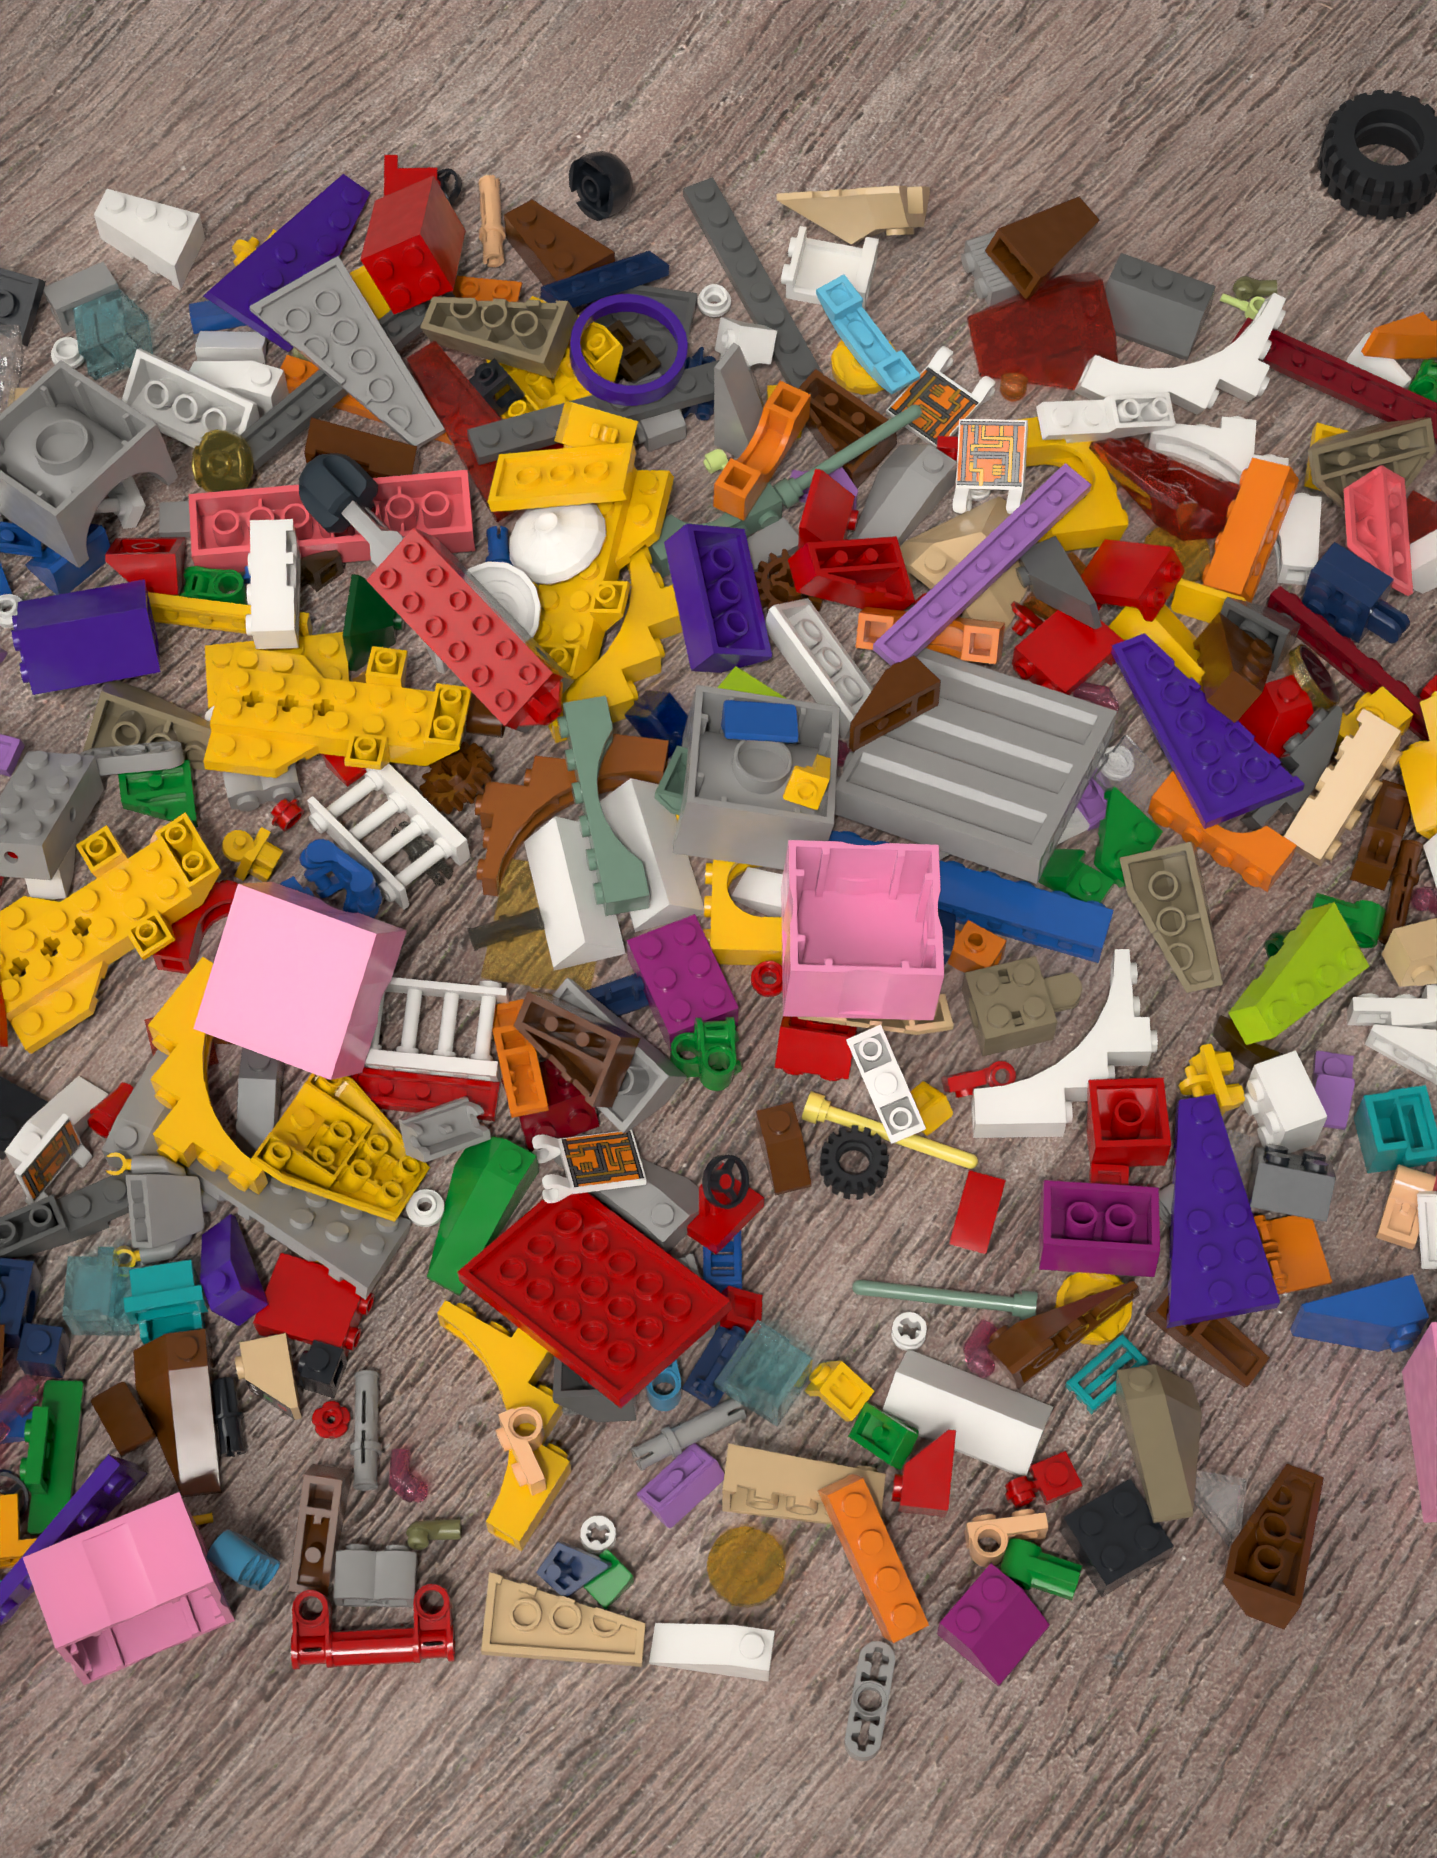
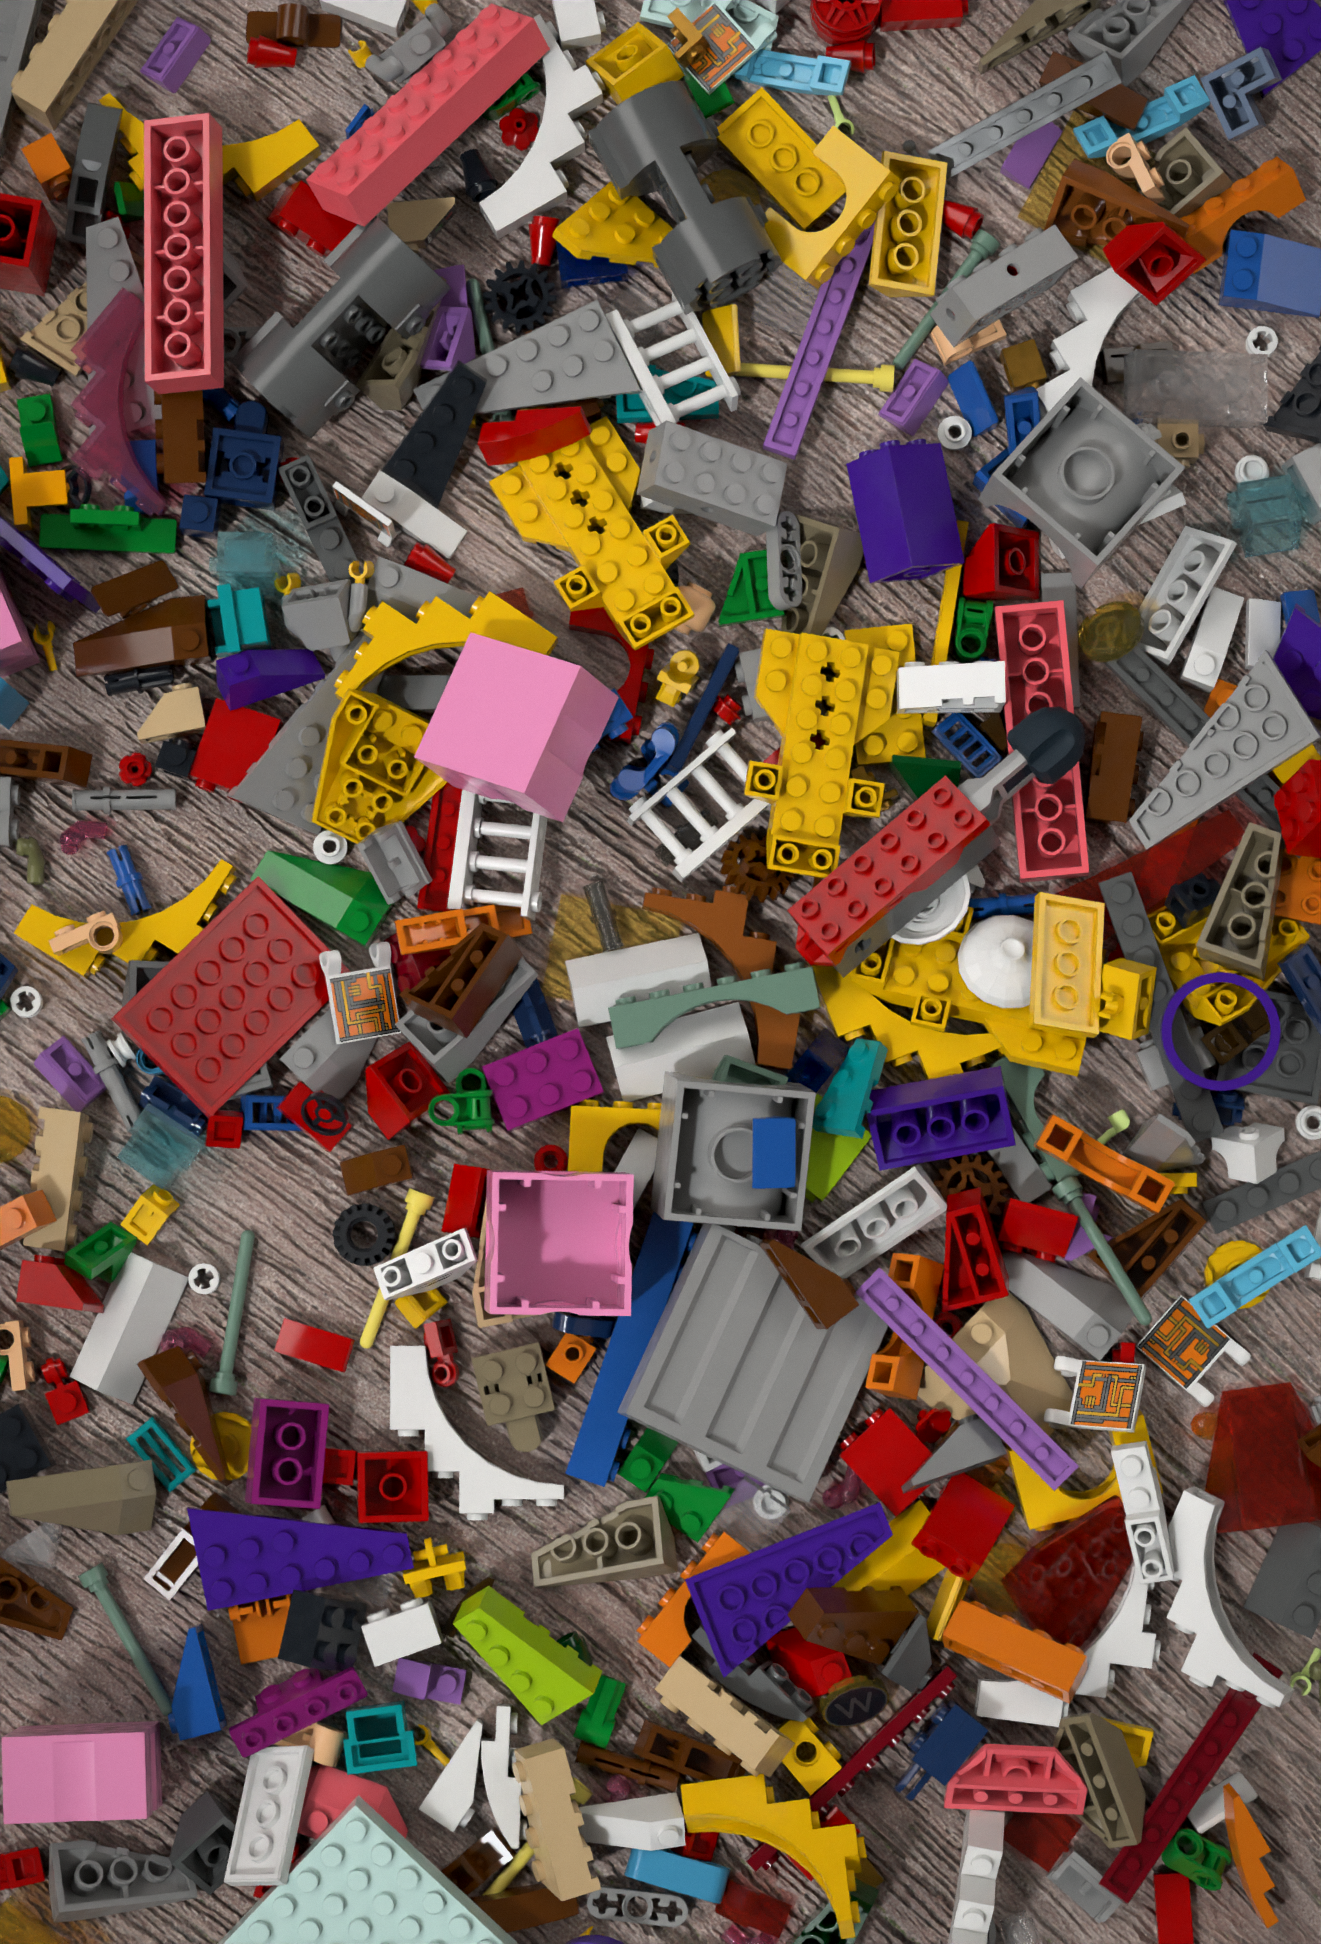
camera: 90 degrees right, 20 degrees up
(283, 833) = (702, 708): none -> dark blue tile
(328, 587) = (993, 759): none -> blue slope
(458, 1423) = (129, 880): none -> blue pin
(652, 1423) = (121, 1049): none -> white bush
(682, 669) = (848, 1094): none -> teal wing
(698, 1122) = (401, 1089): none -> red slope
(808, 784) = (700, 1200): yellow bracket -> none
(1253, 1438) = (96, 1582): none -> sand green piece
(1371, 1217) = (295, 1706): none -> magenta bracket
(1404, 1083) = (430, 1745): none -> yellow hand

